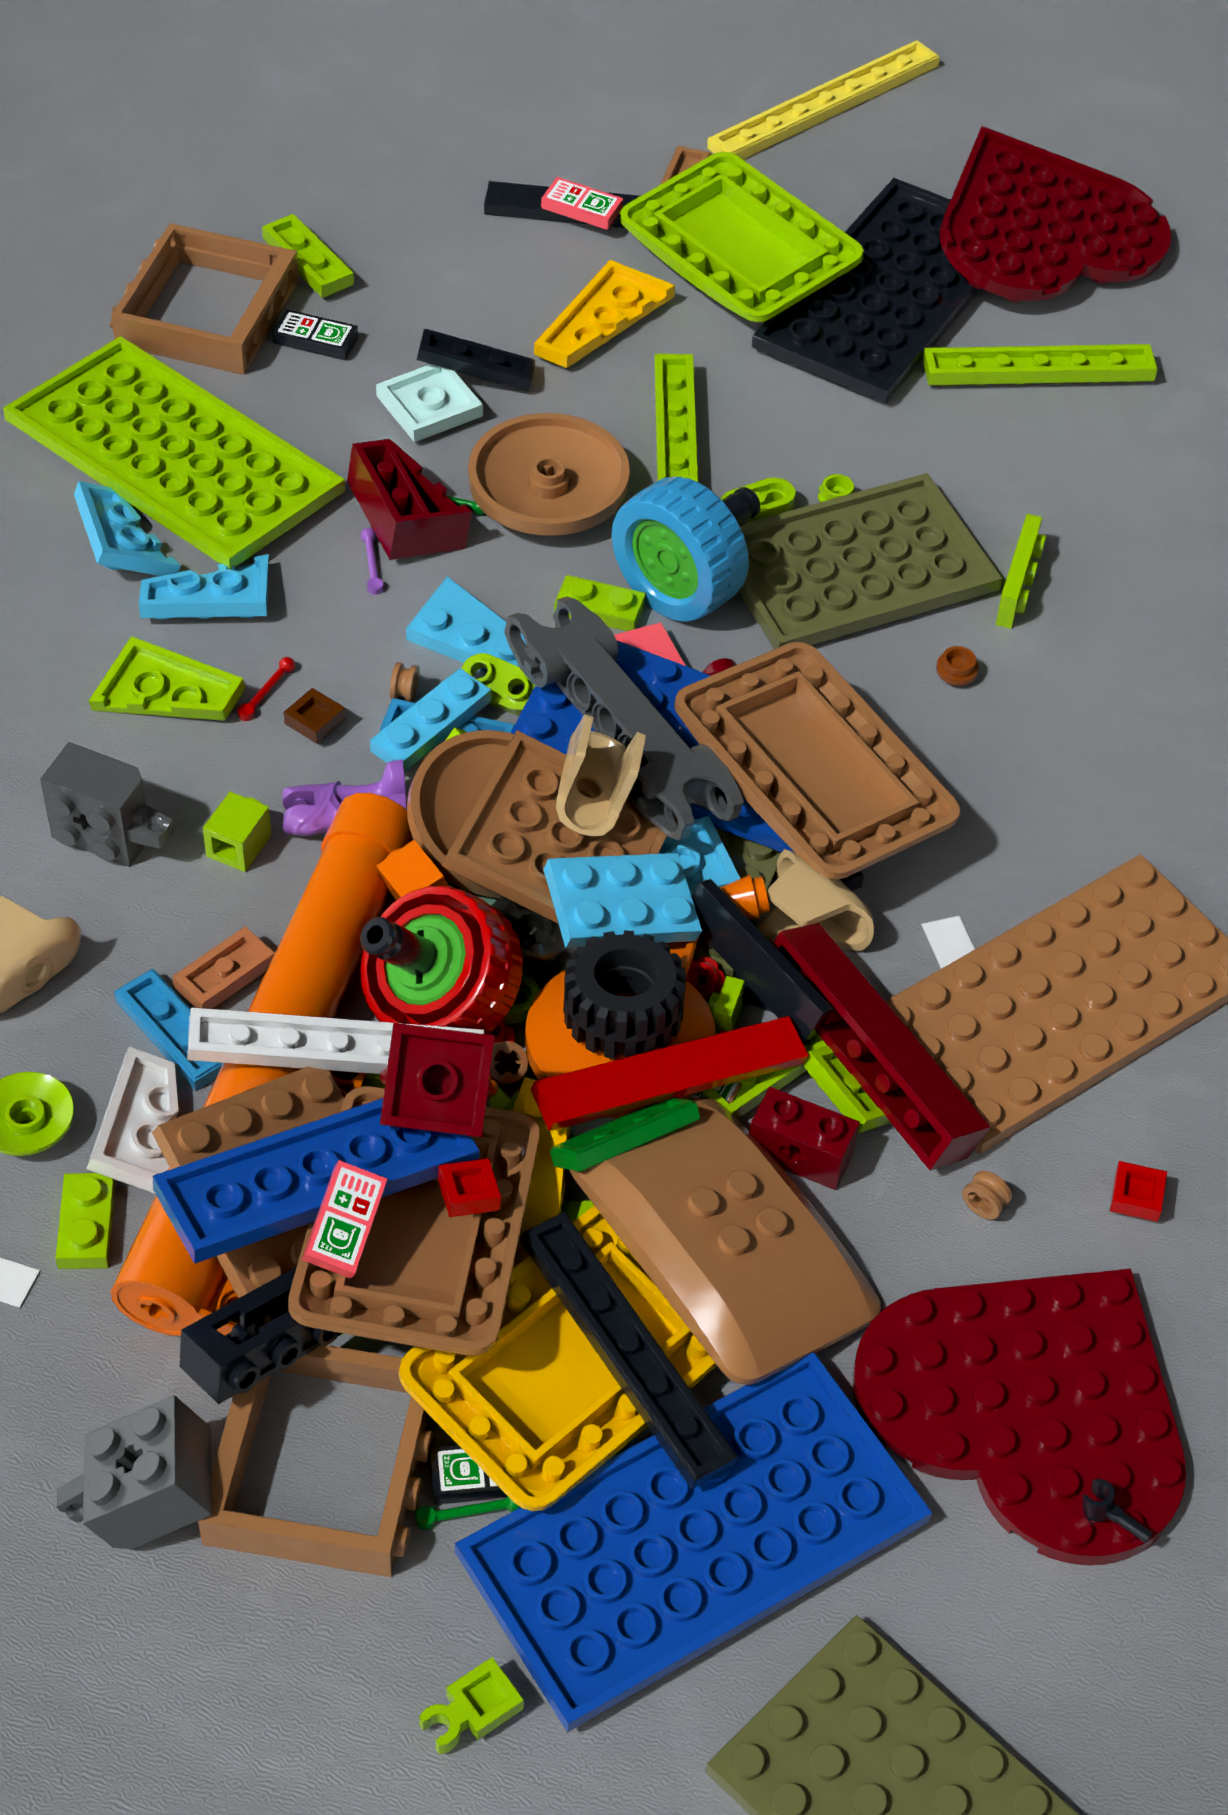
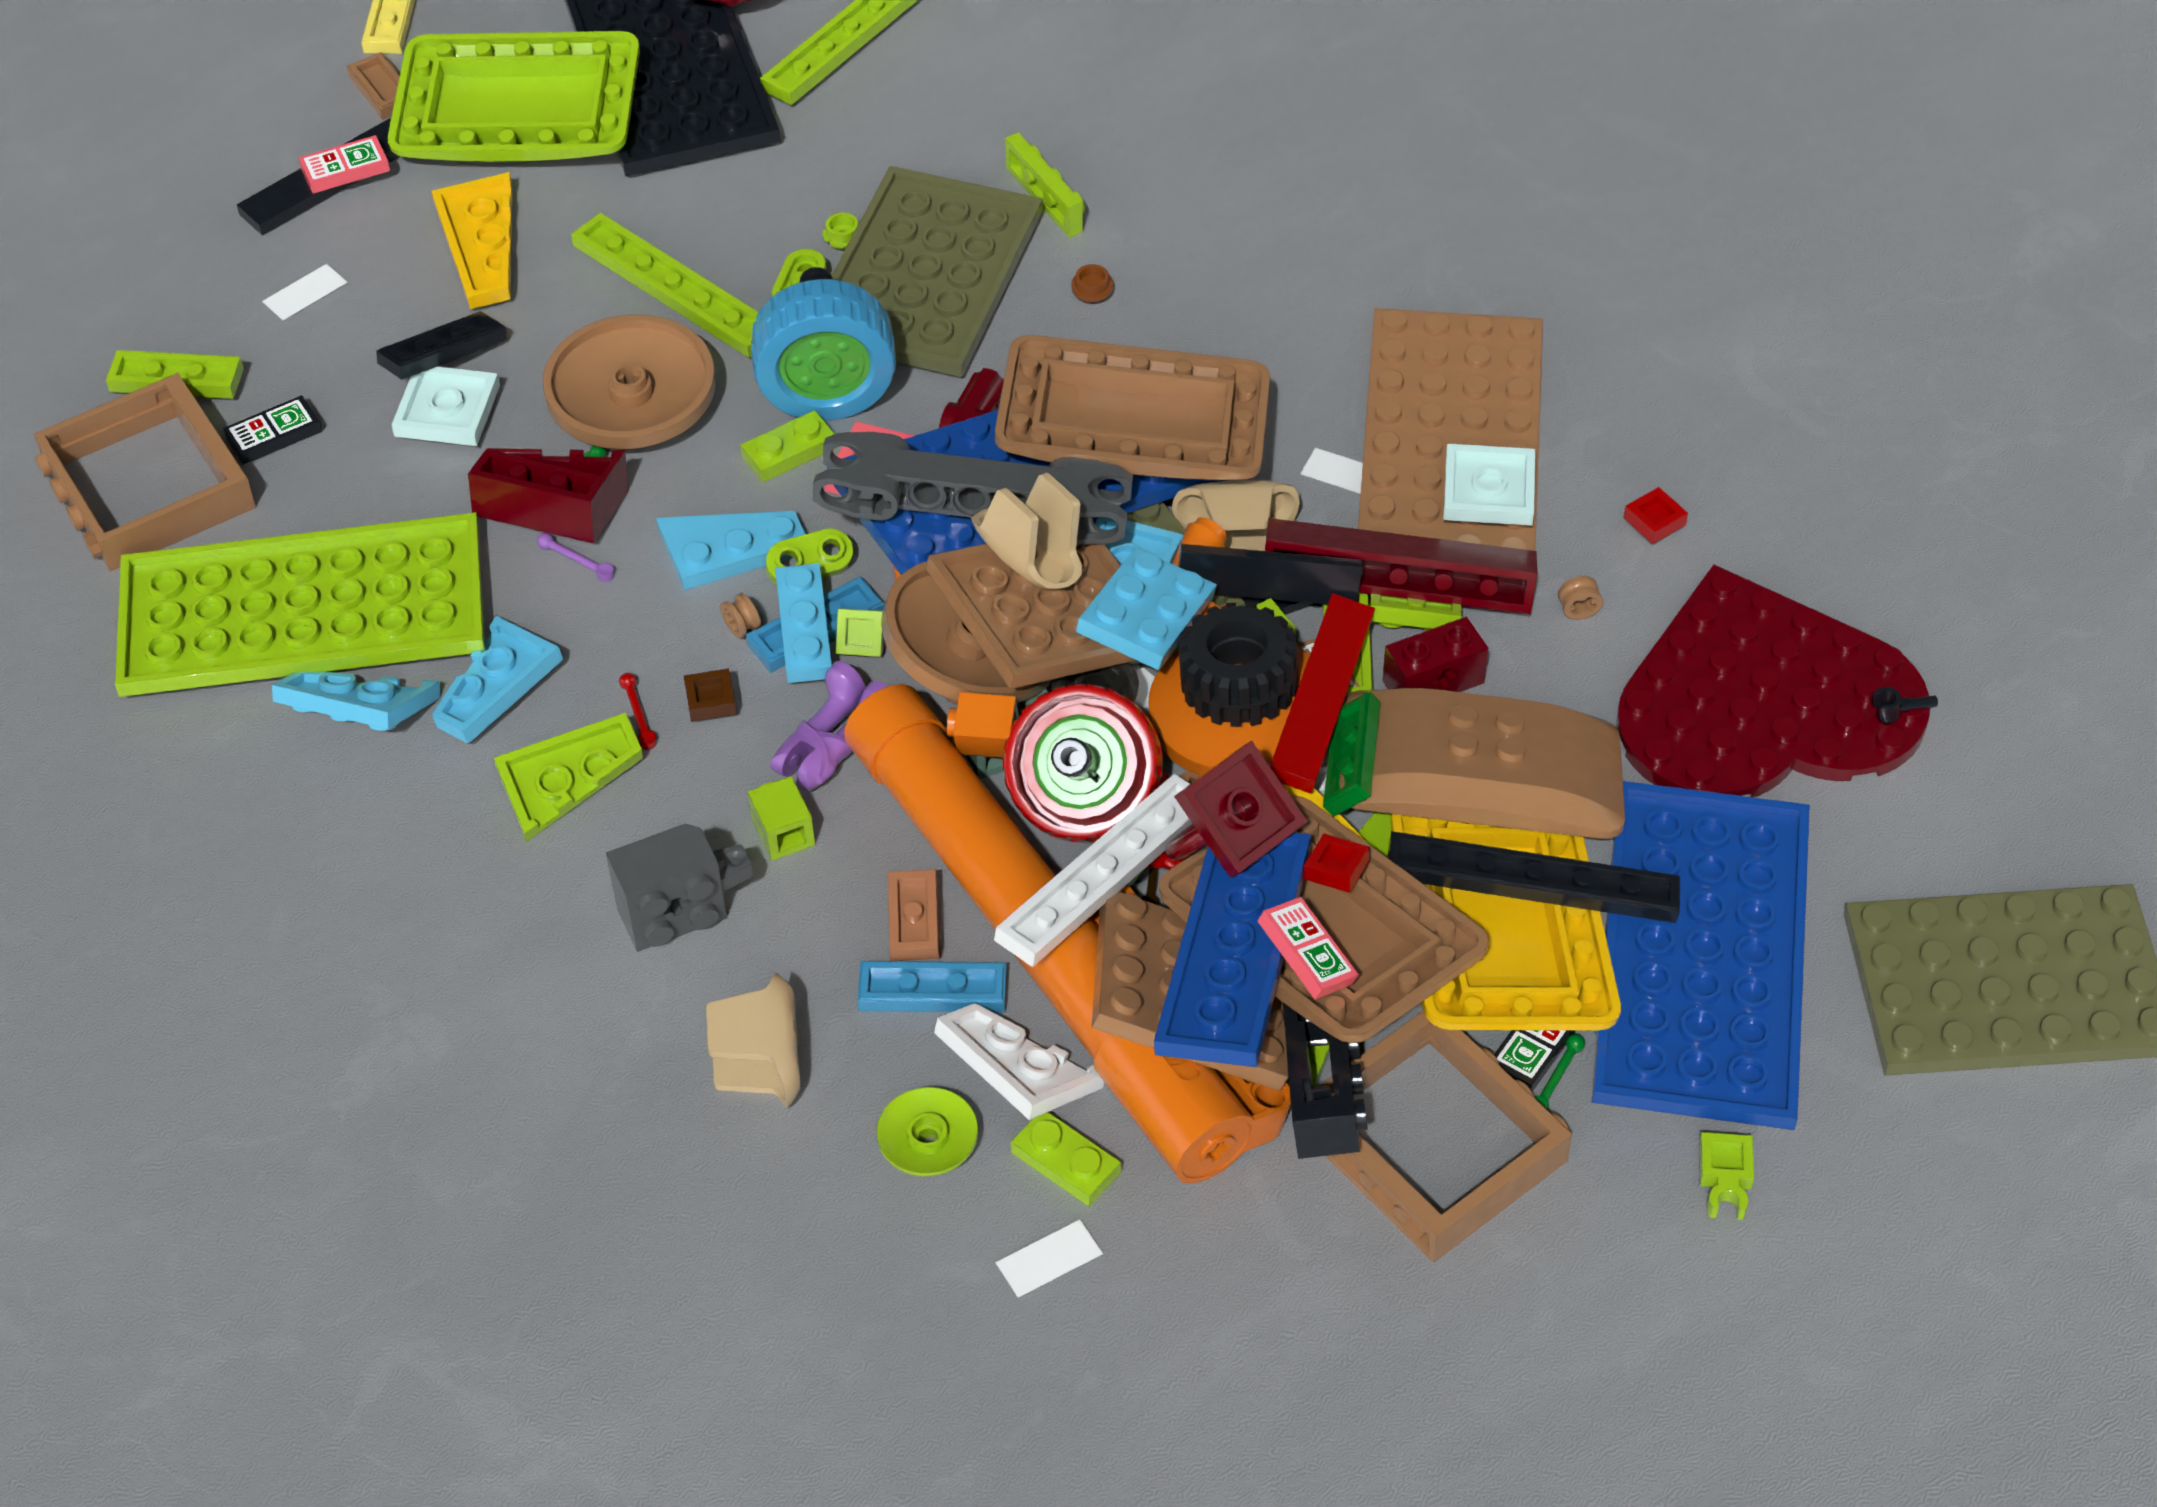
camera: 45 degrees left, 0 degrees up
(143, 1476) = (1357, 1275): dark grey hinge -> none
(458, 267) = (304, 292): none -> white sticker
(1024, 1047) = (1489, 484): none -> light aqua plate

